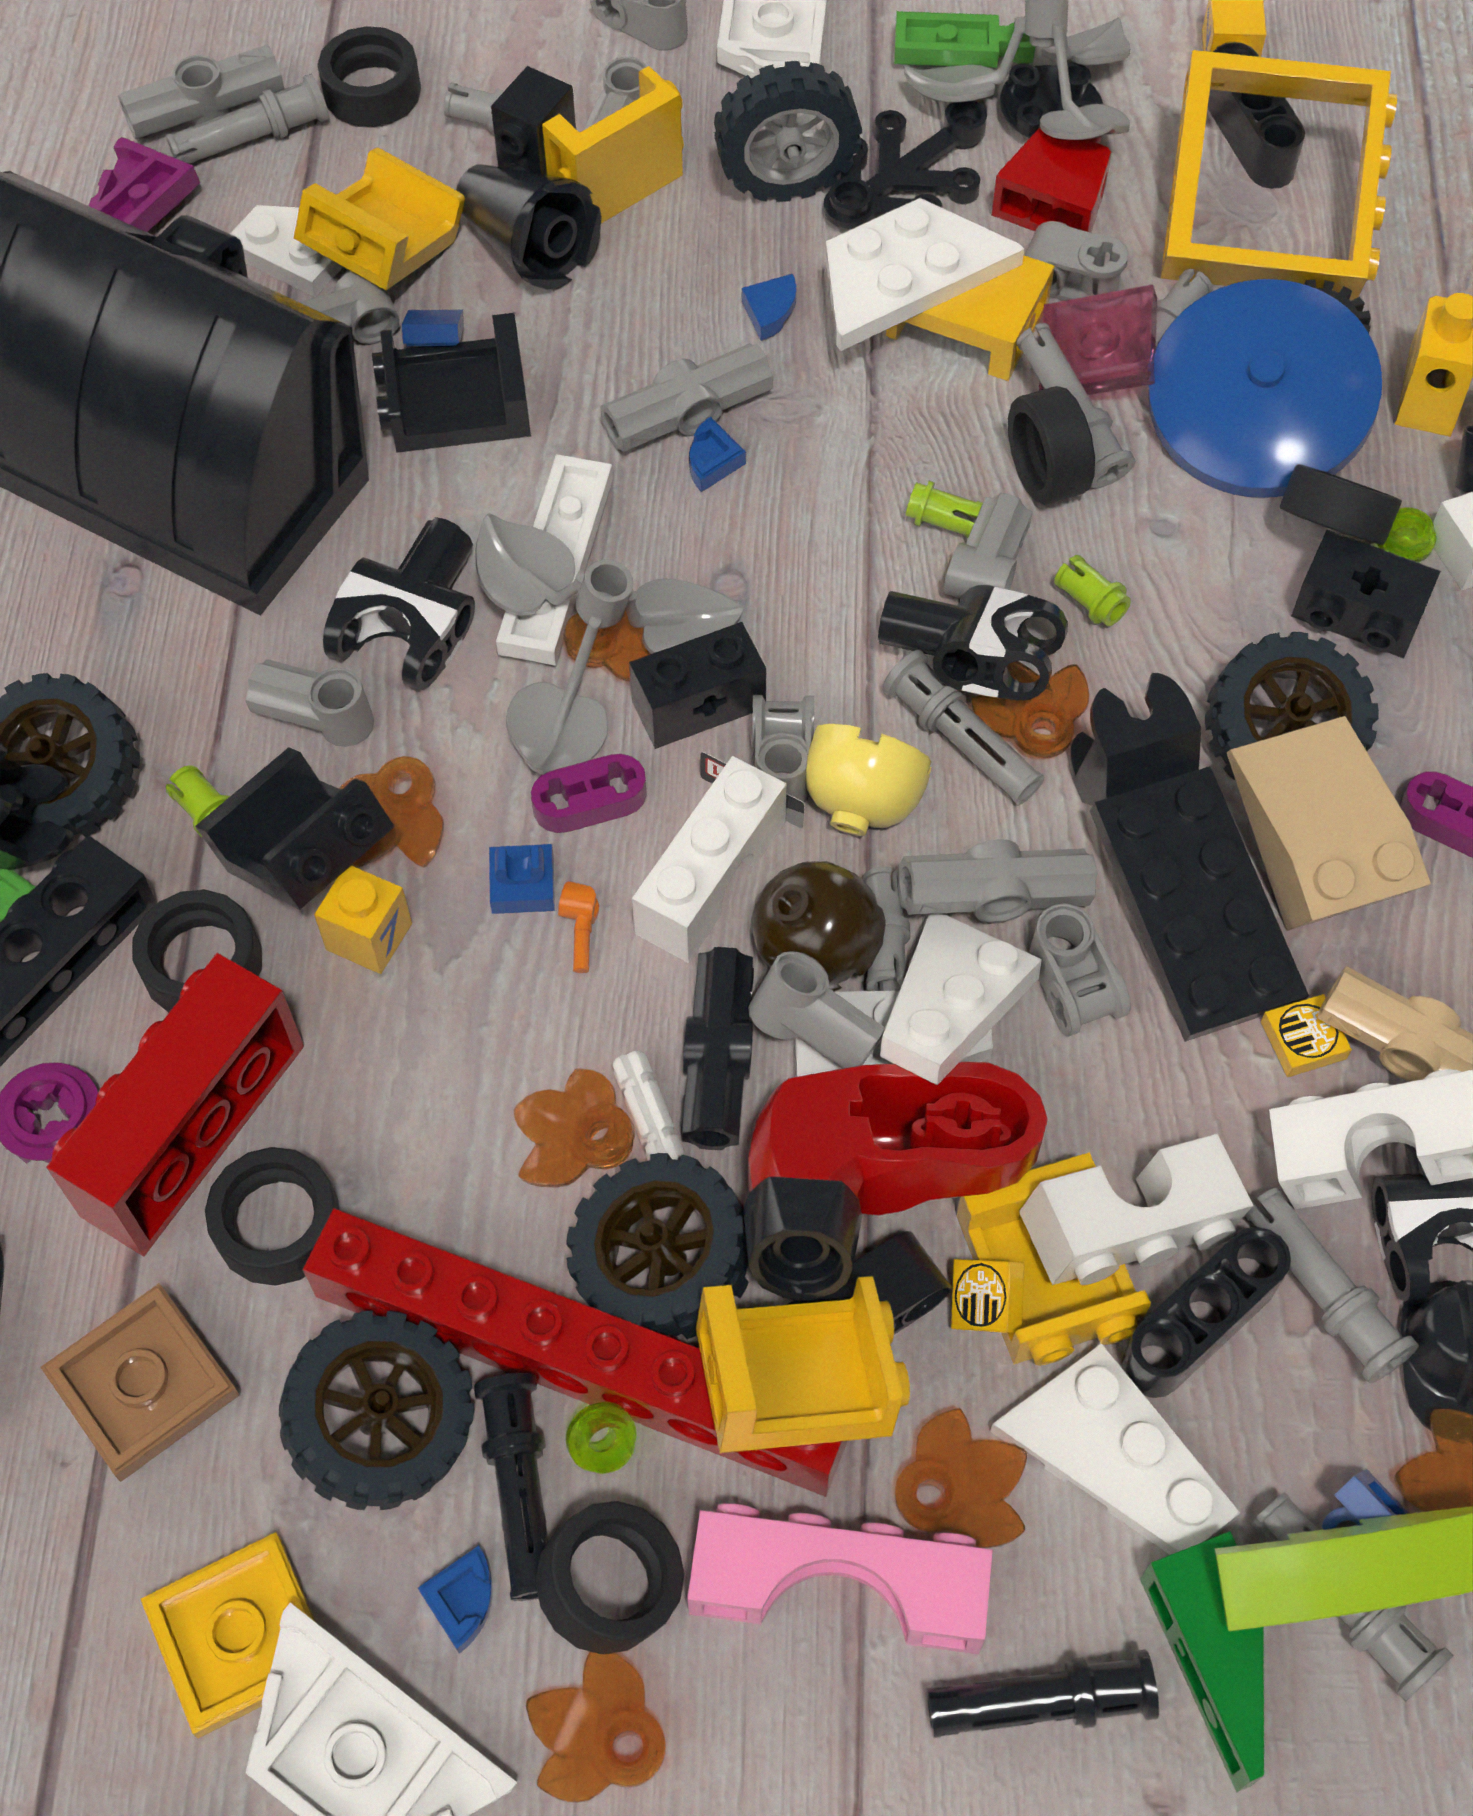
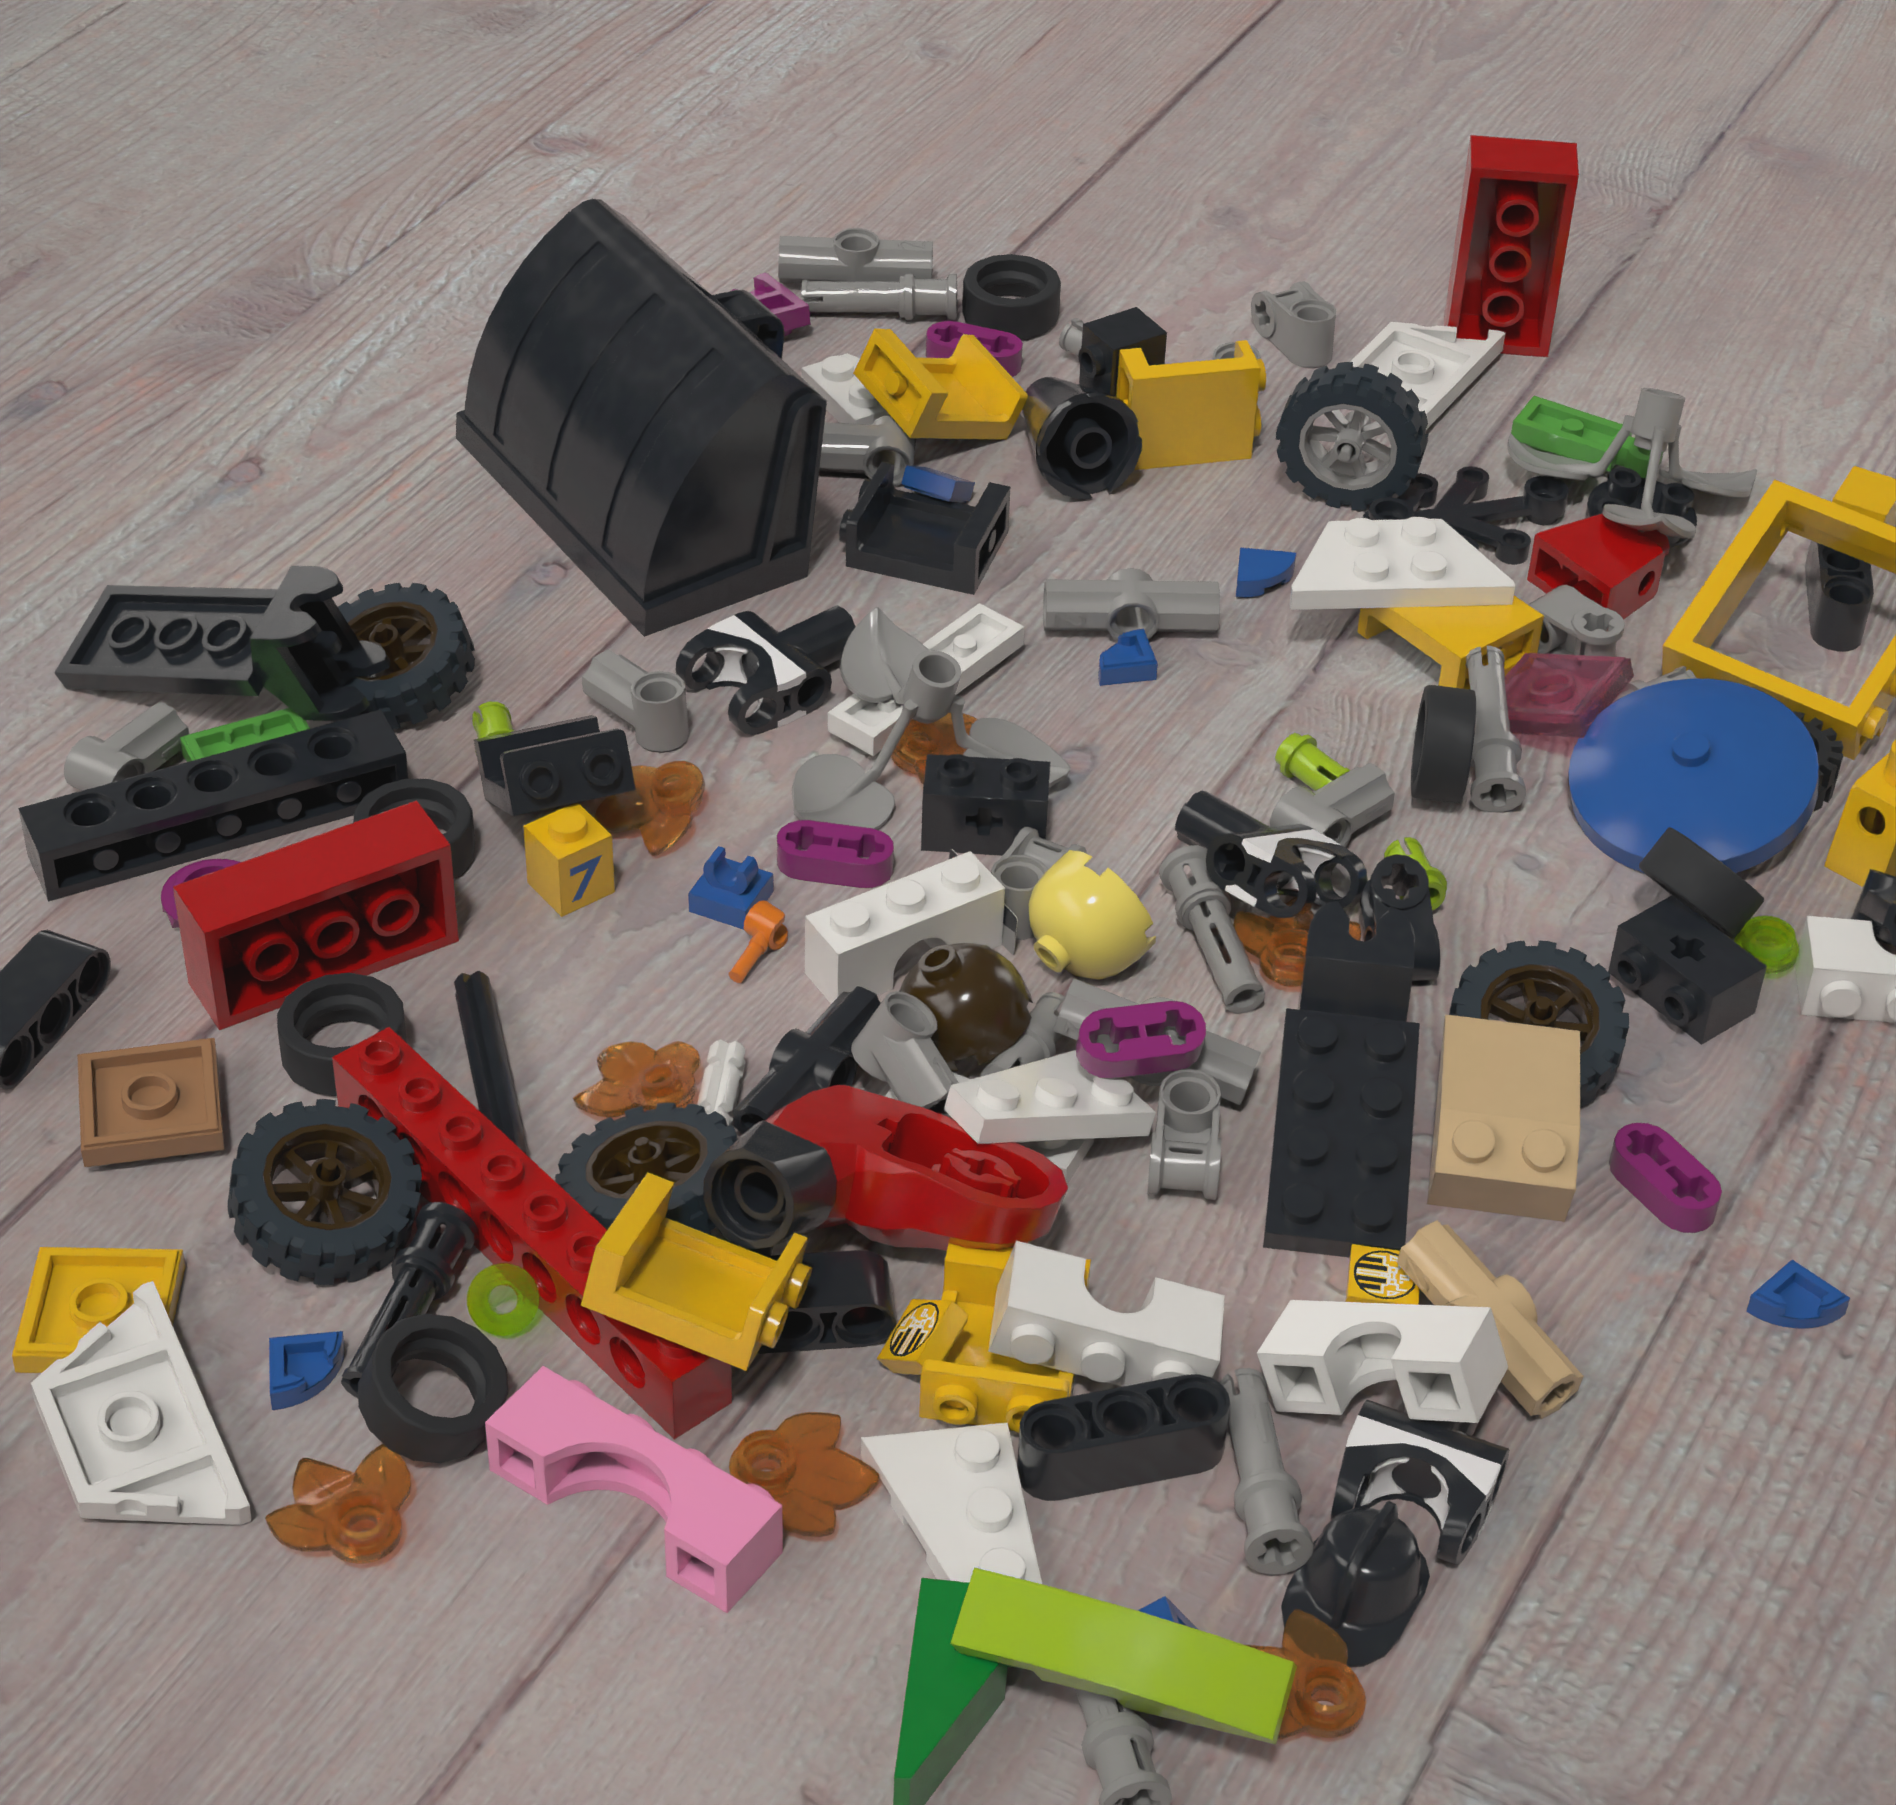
camera: 25 degrees right, 20 degrees down
(358, 141) = (1003, 346): none -> magenta beam
(426, 1181) = (487, 1055): none -> black axle
(1013, 913) = (1140, 1039): none -> magenta beam
(1078, 1693) = (791, 1666): black pin -> none
(1119, 658) = (1407, 880): none -> black piece

